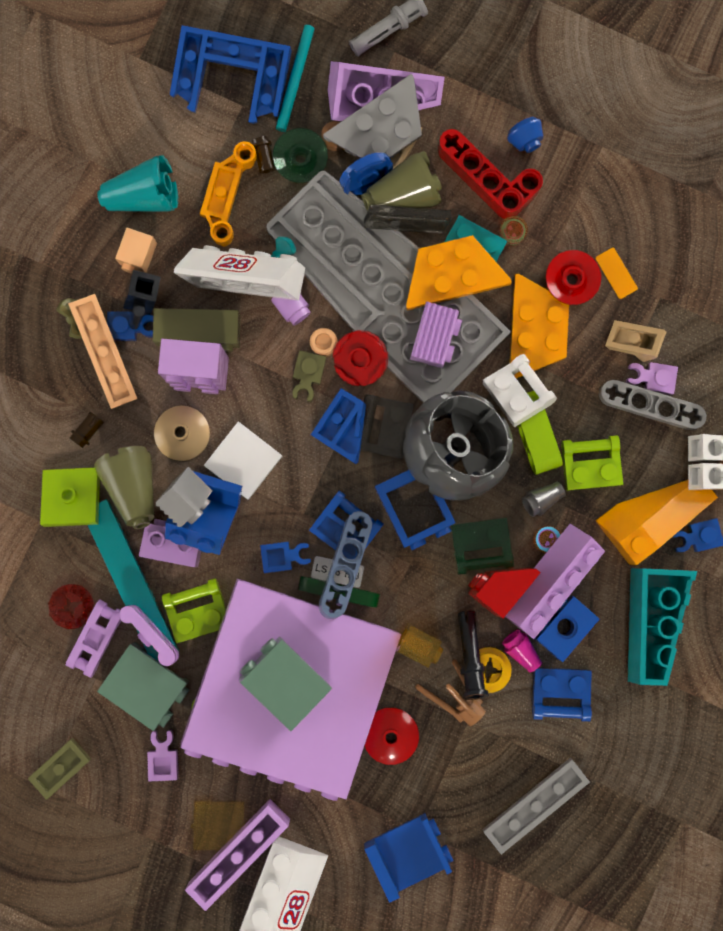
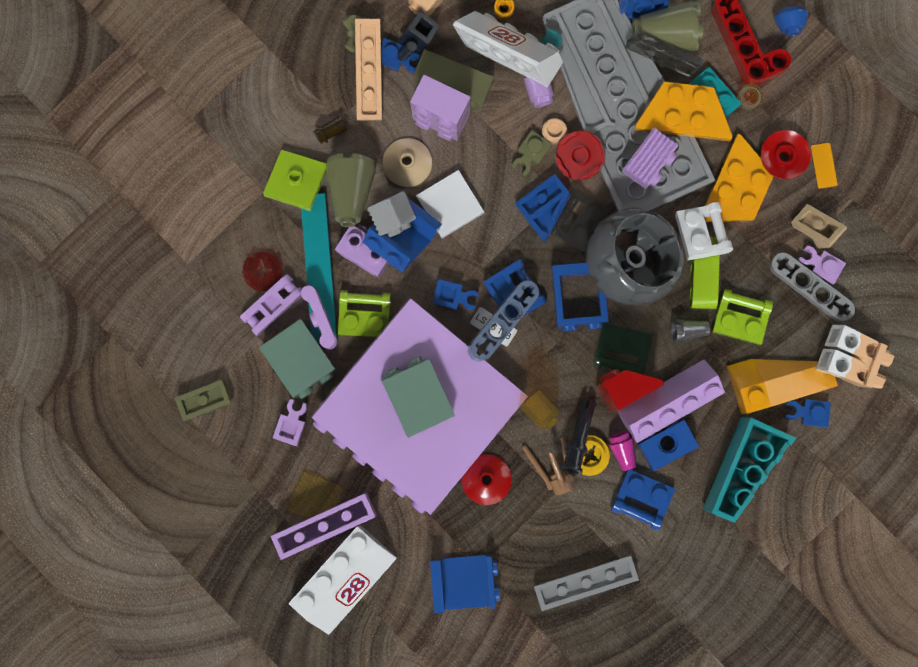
camera: 30 degrees right, 0 degrees up
(357, 595) = (502, 352): dark green beam -> none
(545, 537) = (678, 364): tile -> none

